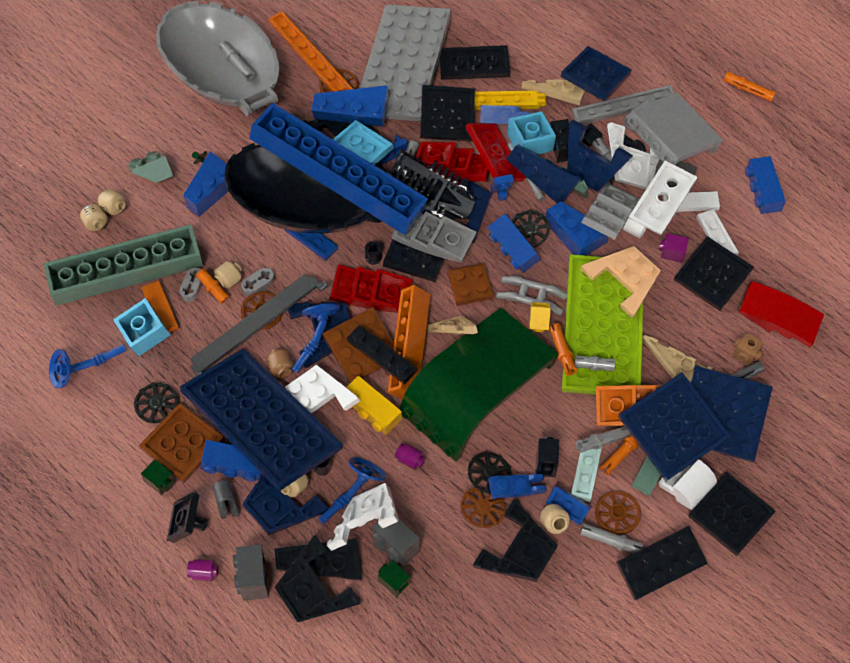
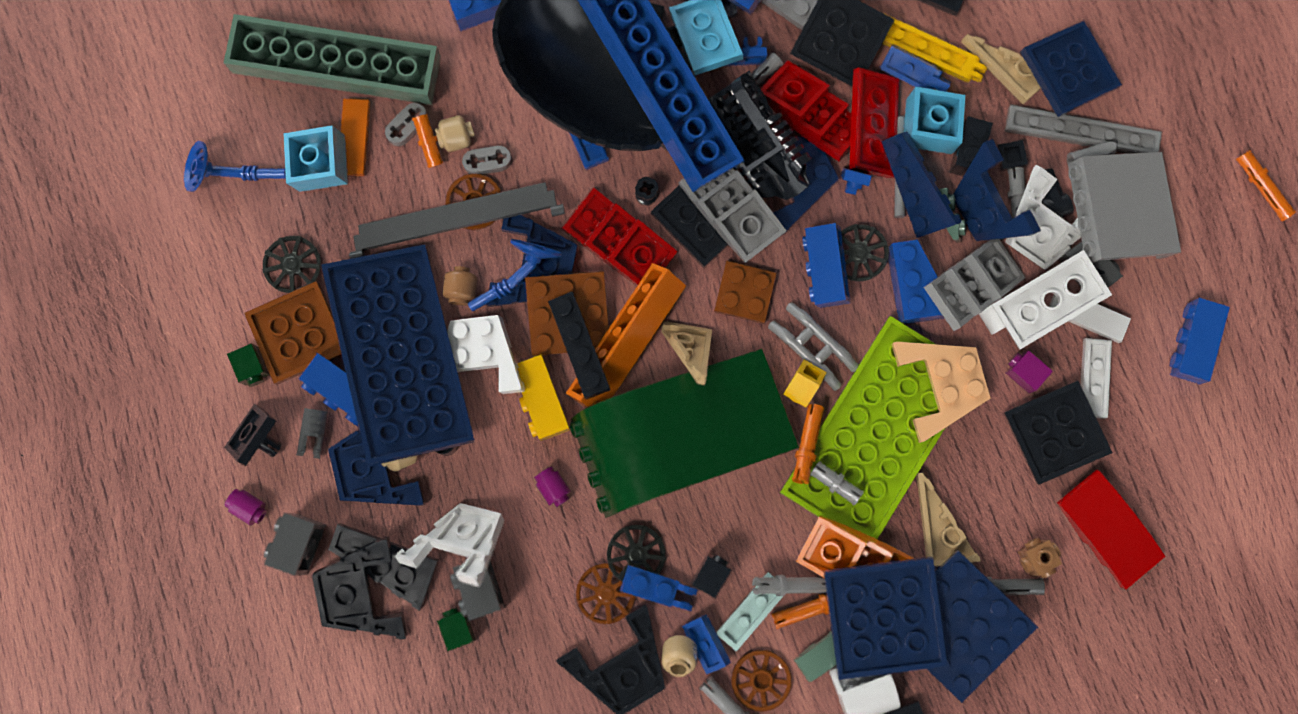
camera: 25 degrees right, 20 degrees up
(364, 474) = (482, 488): blue dish -> none

